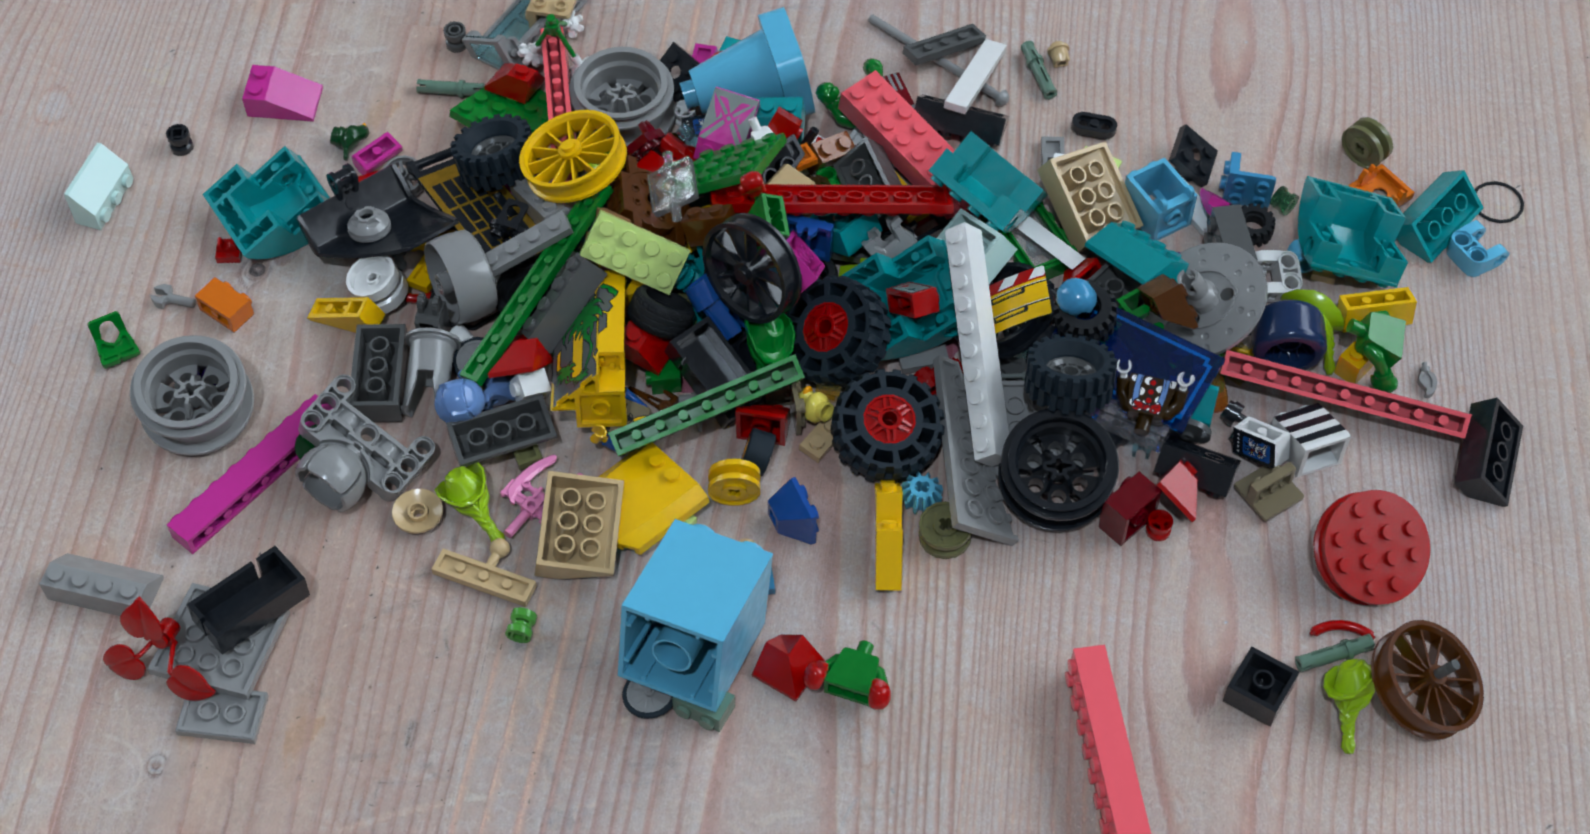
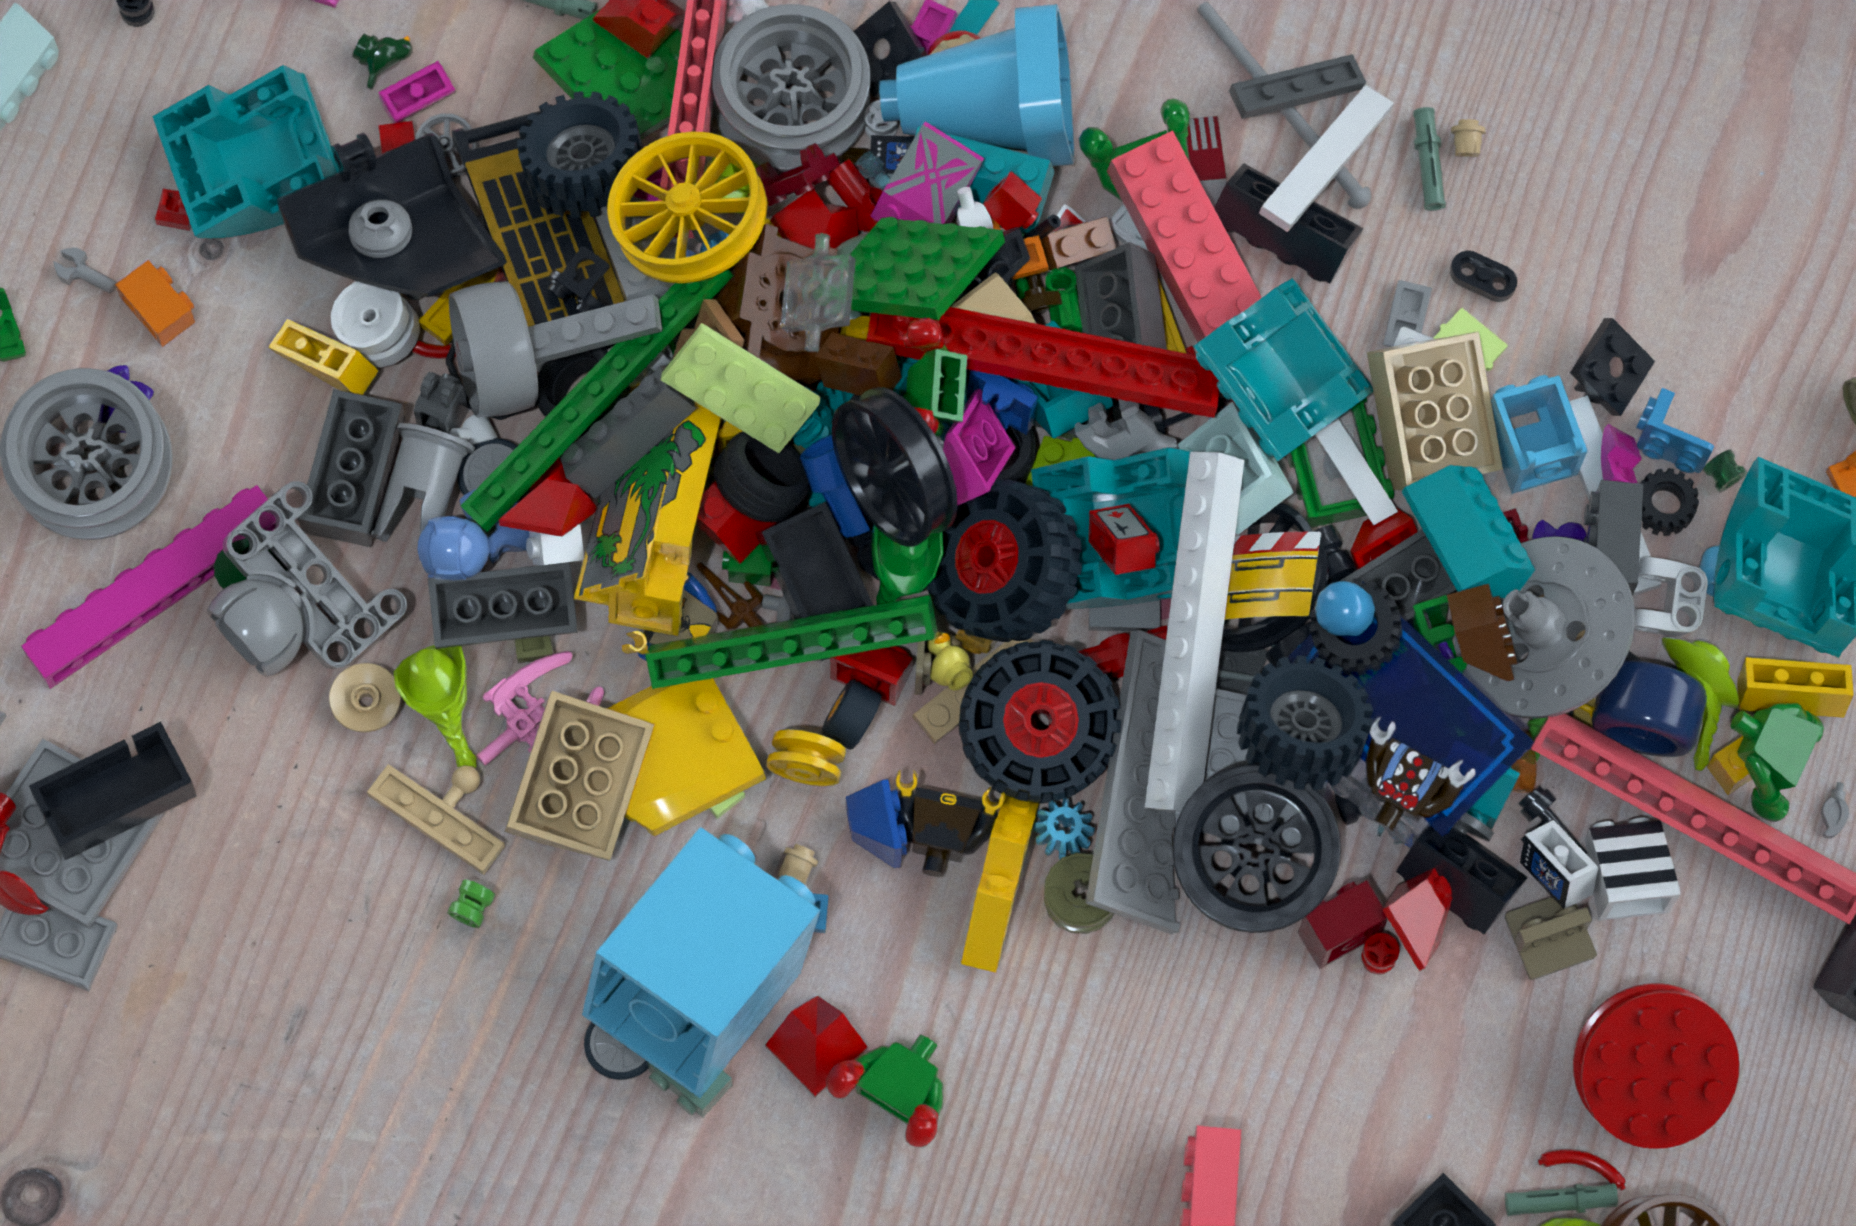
camera: 10 degrees right, 15 degrees up
(841, 505) = (944, 823): none -> torso

